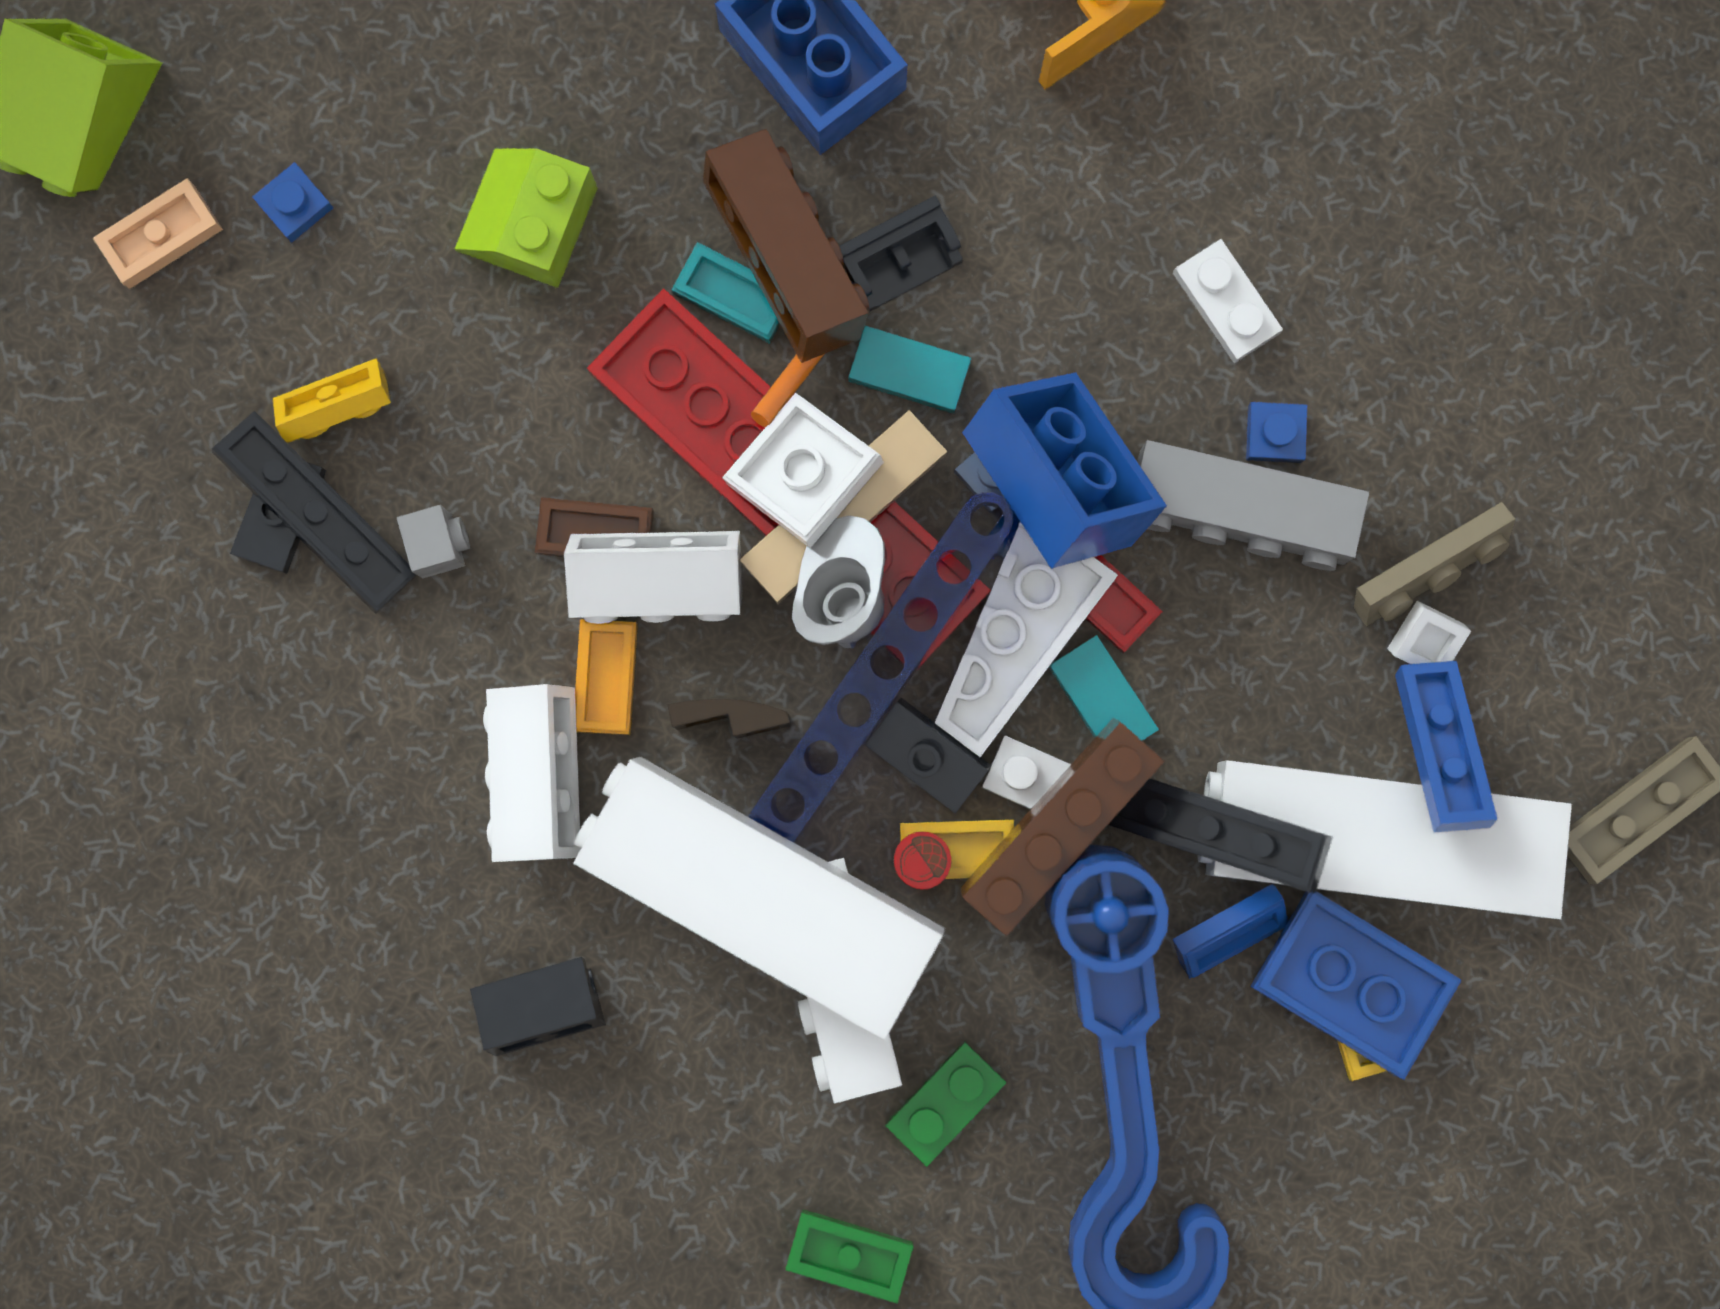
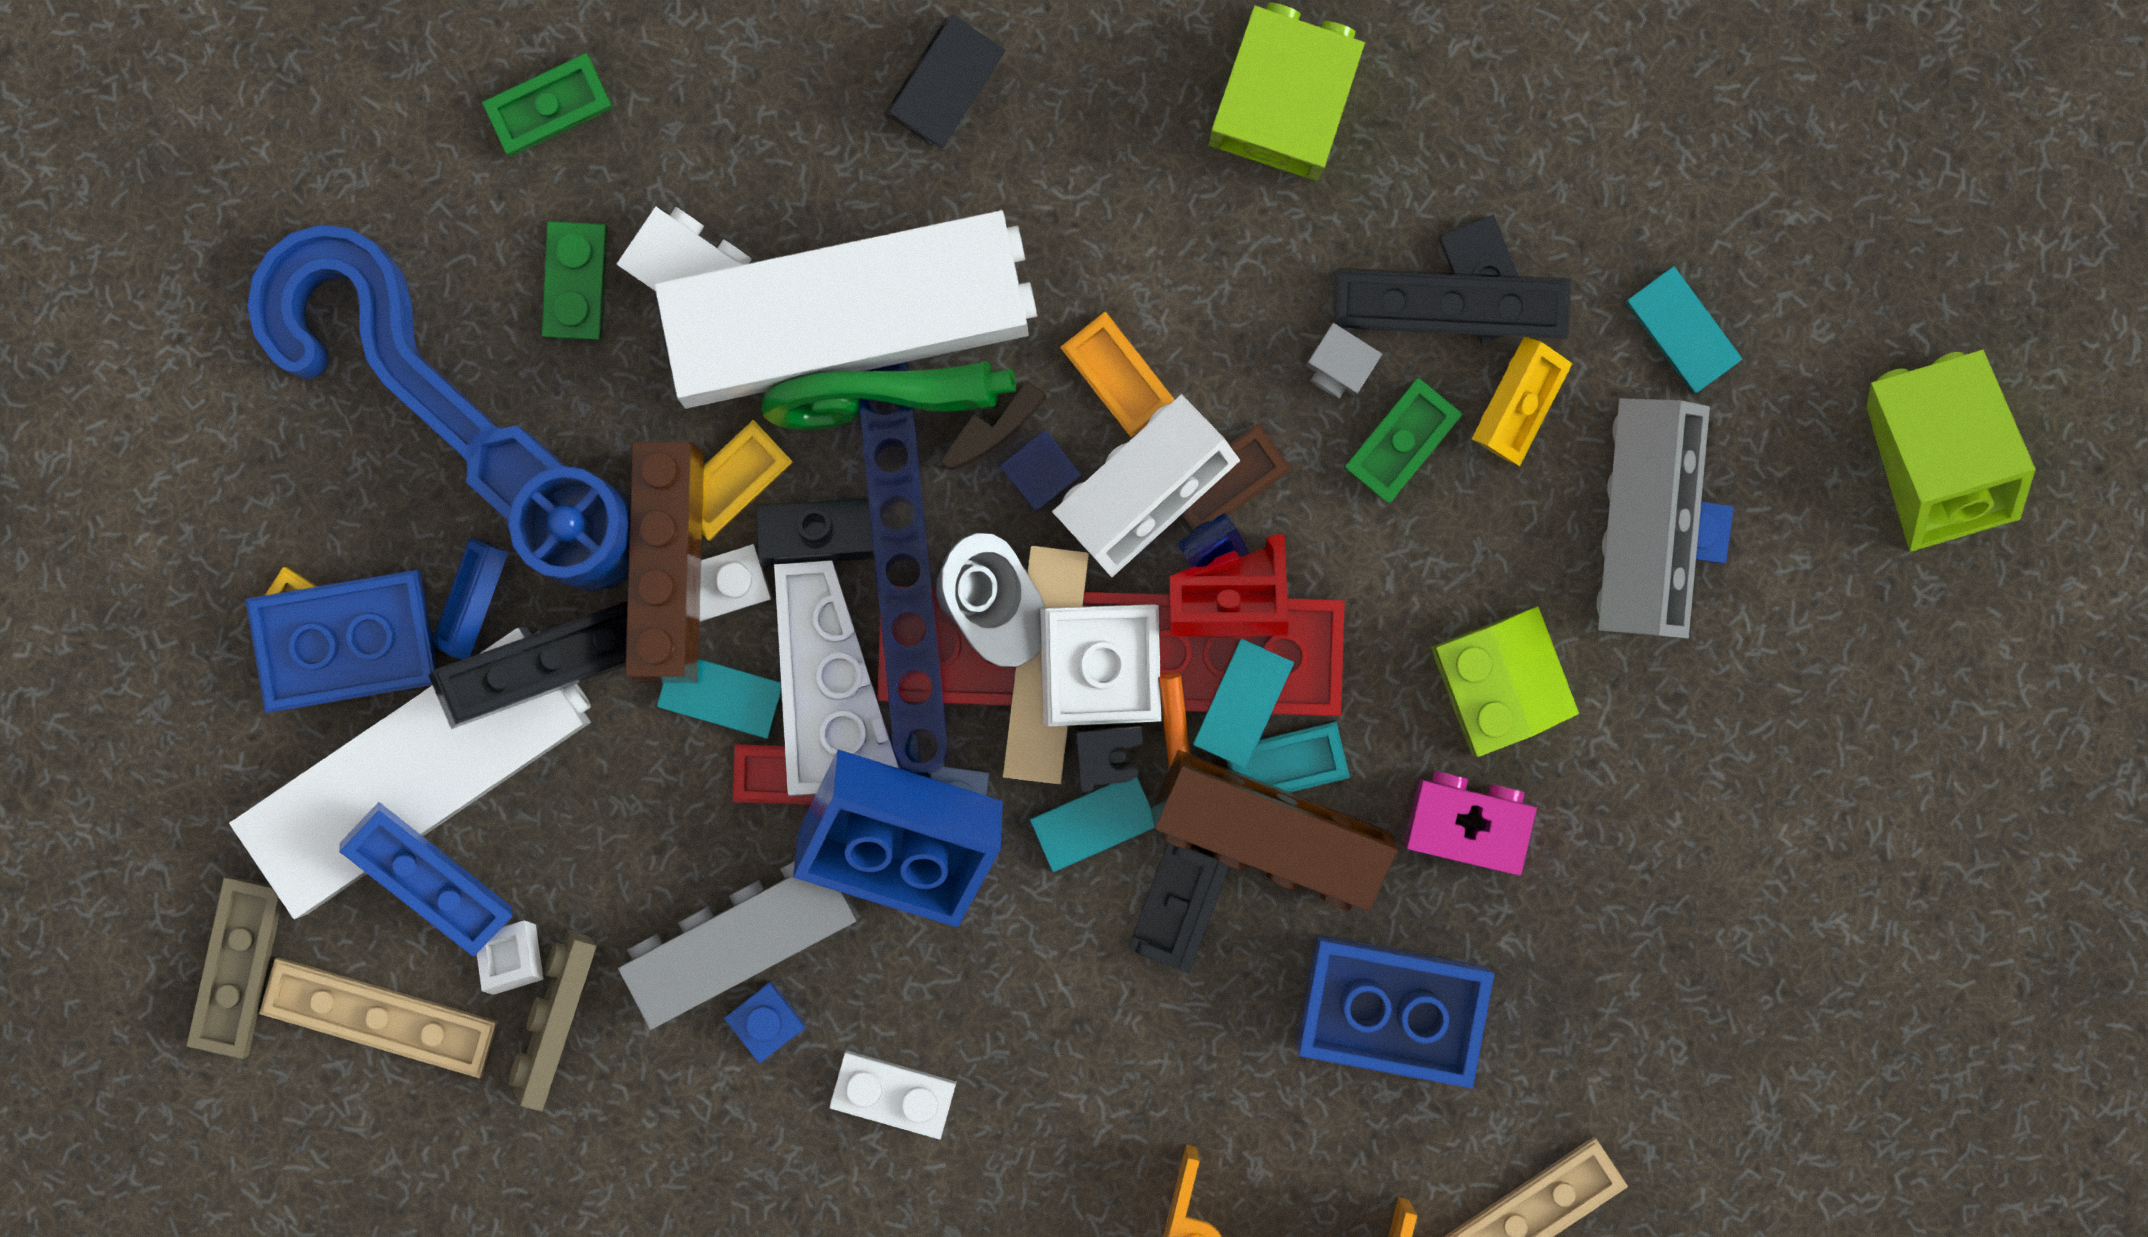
camera: 135 degrees right, 5 degrees up
(157, 233) = (1781, 412): light nougat plate -> none
(173, 353) = (1683, 330): none -> teal tile
(293, 771) = (1287, 91): none -> lime slope
(314, 234) = (1653, 517): none -> light grey brick
(442, 447) = (1403, 441): none -> green plate
(532, 773) = (1103, 251): white brick -> none
(632, 103) = (1497, 846): none -> dark pink brick
(647, 488) = (1211, 541): none -> clear blue plate
(661, 437) = (1233, 595): none -> red wing
(723, 655) = (1040, 470): none -> clear blue plate
(724, 355) = (1243, 703): none -> teal tile
(824, 836) = (837, 394): none -> green plant
(859, 405) = (1097, 757): none -> black hinge
(922, 860) = (749, 447): red tile -> none
(1564, 682) = (378, 1017): none -> tan tile

